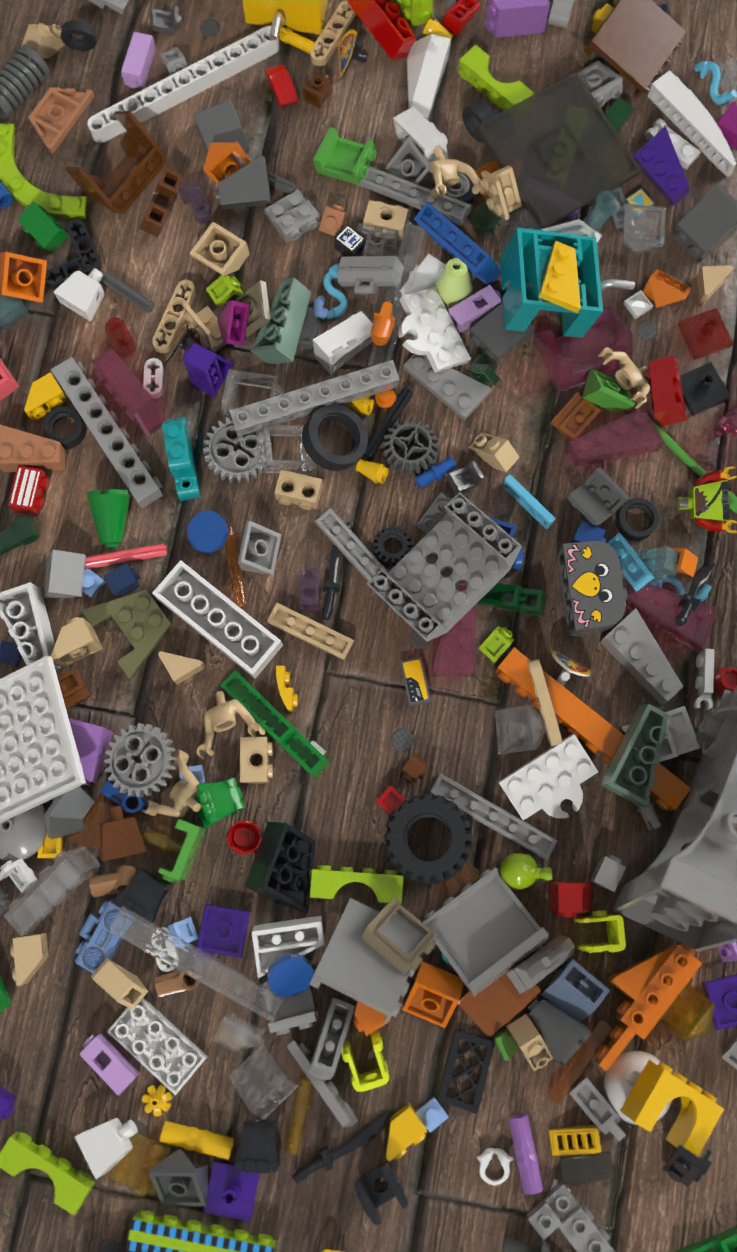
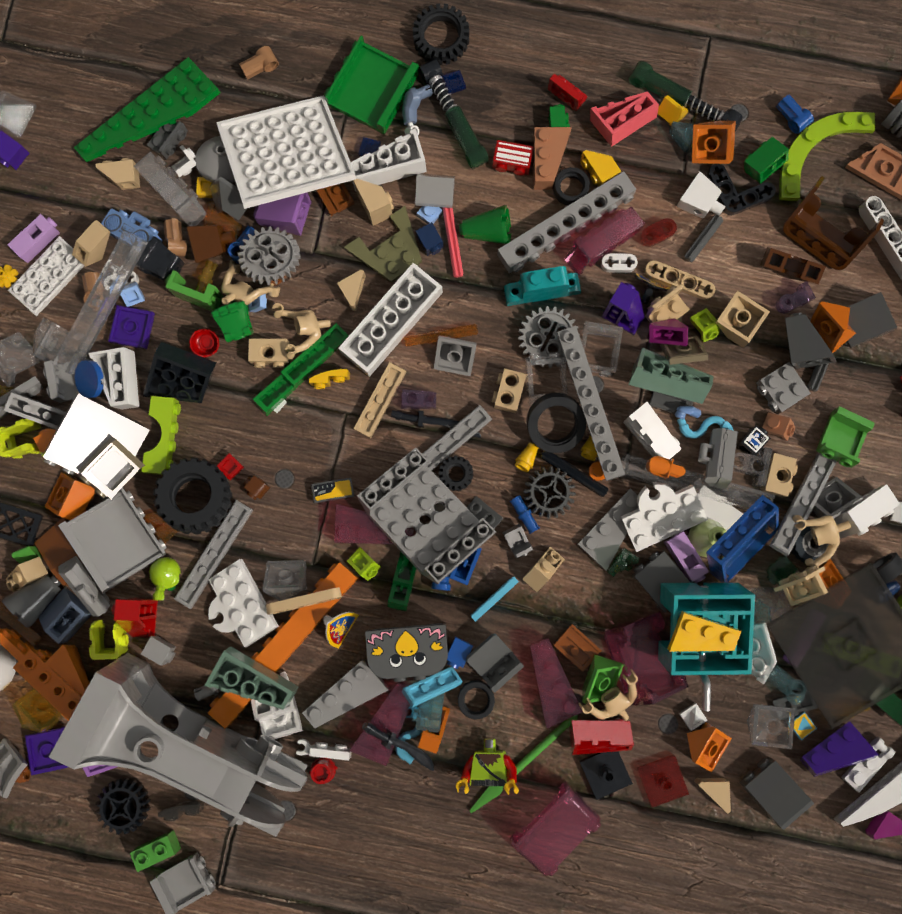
camera: 95 degrees right, 5 degrees up
(207, 532) = (472, 311): blue tile -> none

